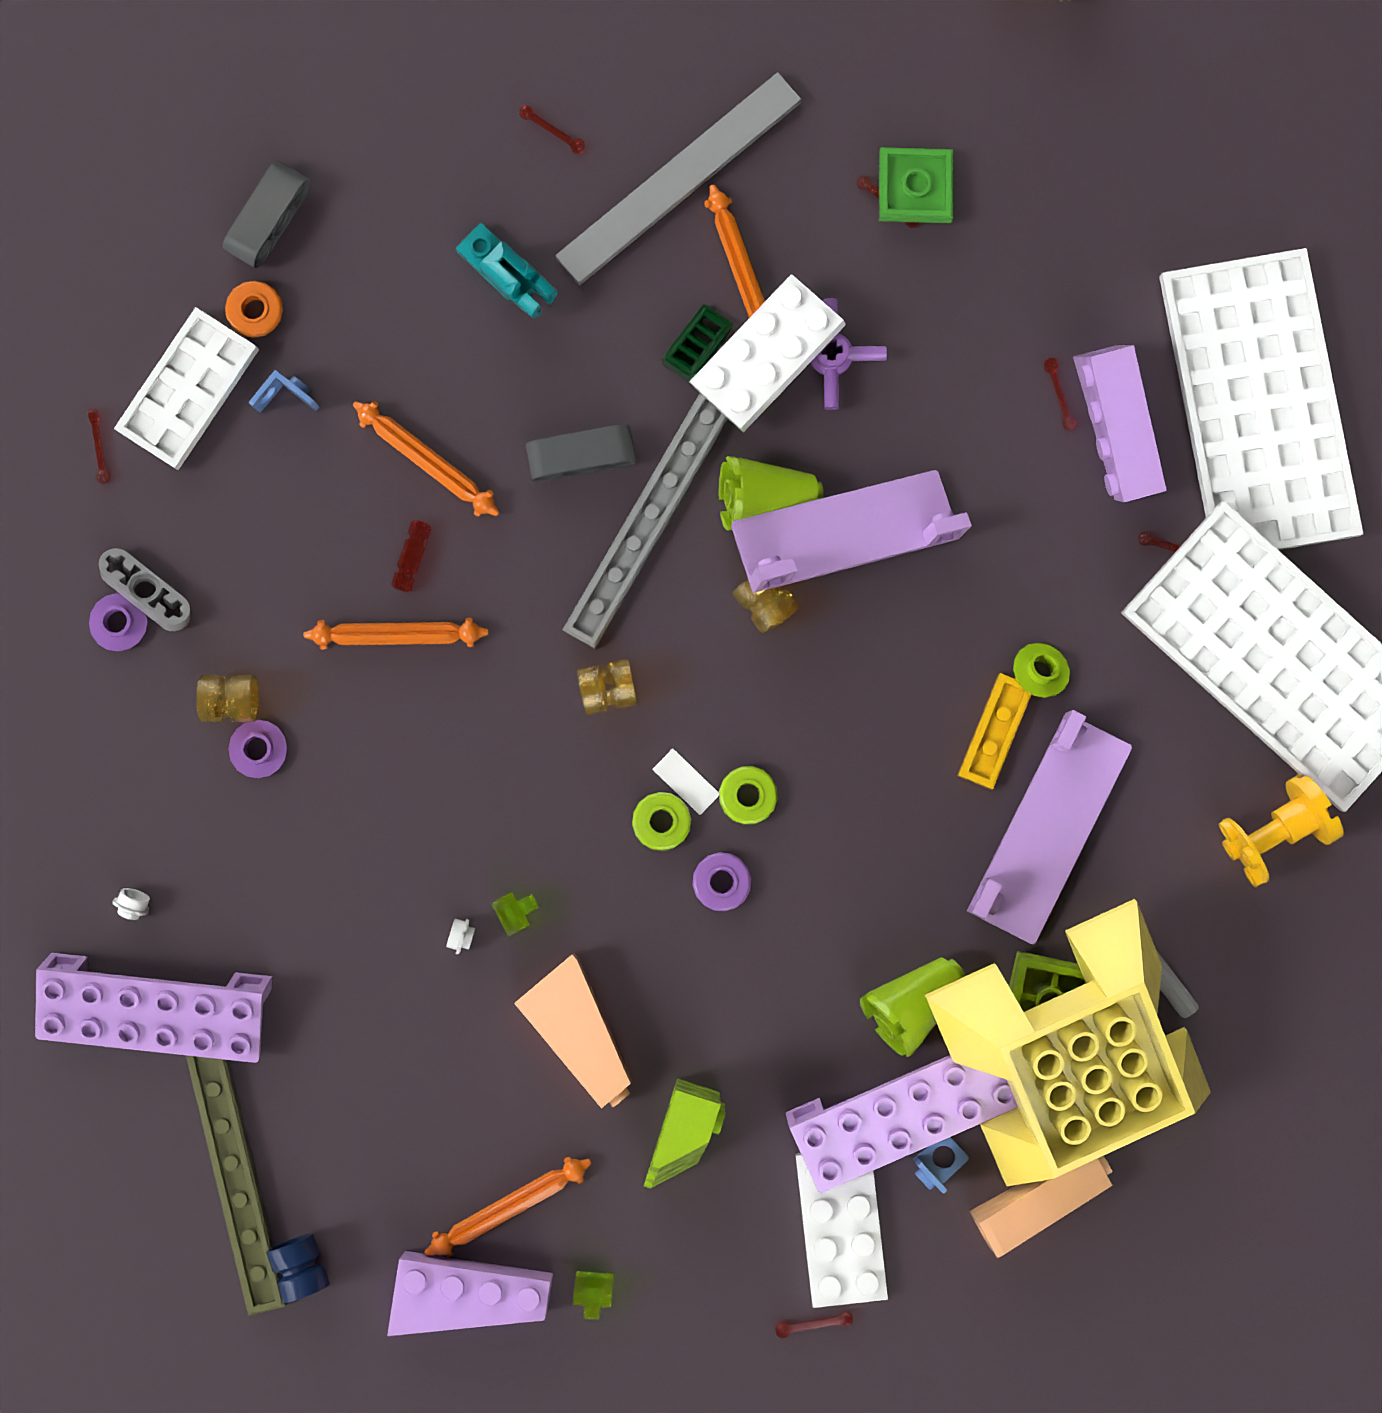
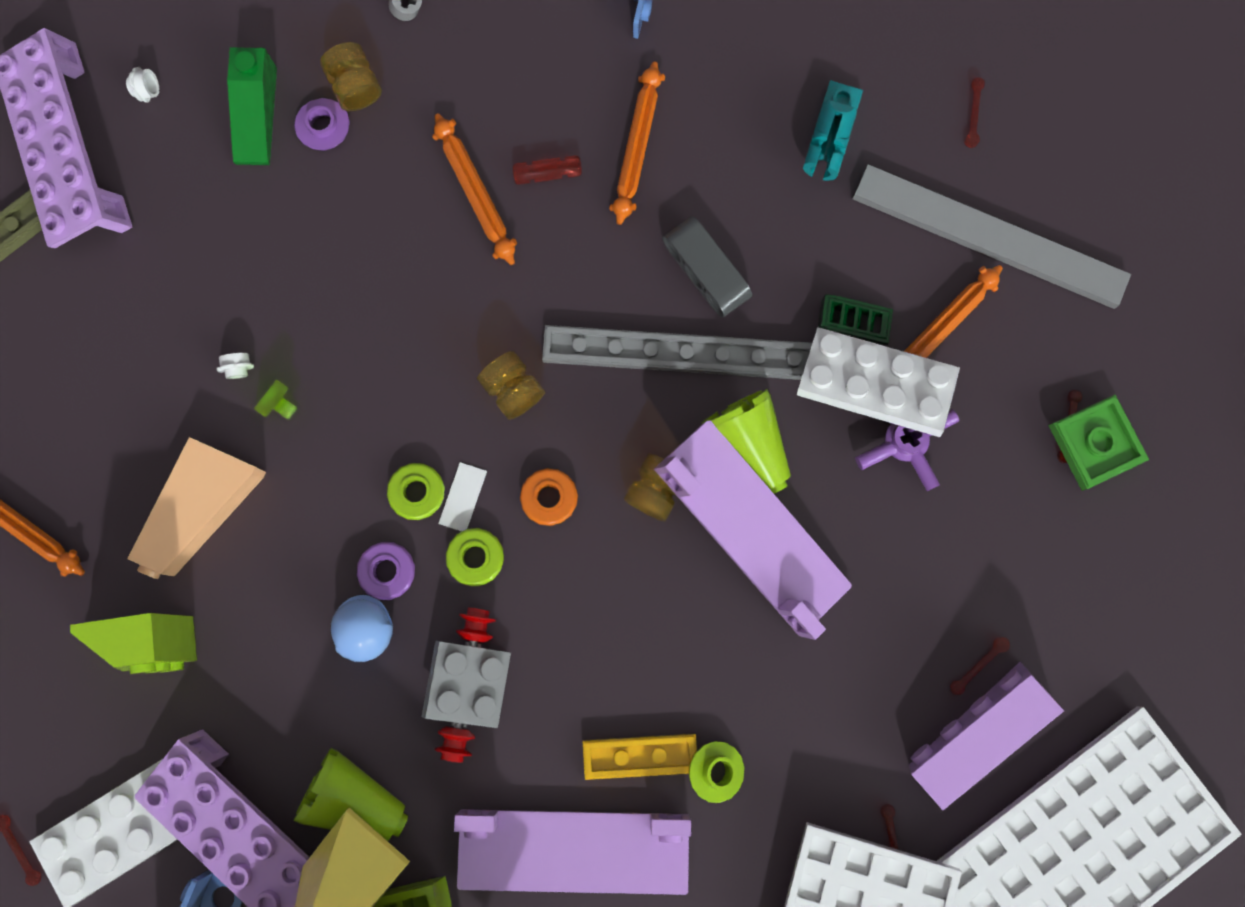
camera: 60 degrees right, 5 degrees down
(208, 808) = (251, 104): none -> green slope
(725, 683) = (541, 480): none -> orange piece
(765, 925) = (361, 628): none -> light blue helmet
(860, 854) = (465, 685): none -> light grey plate

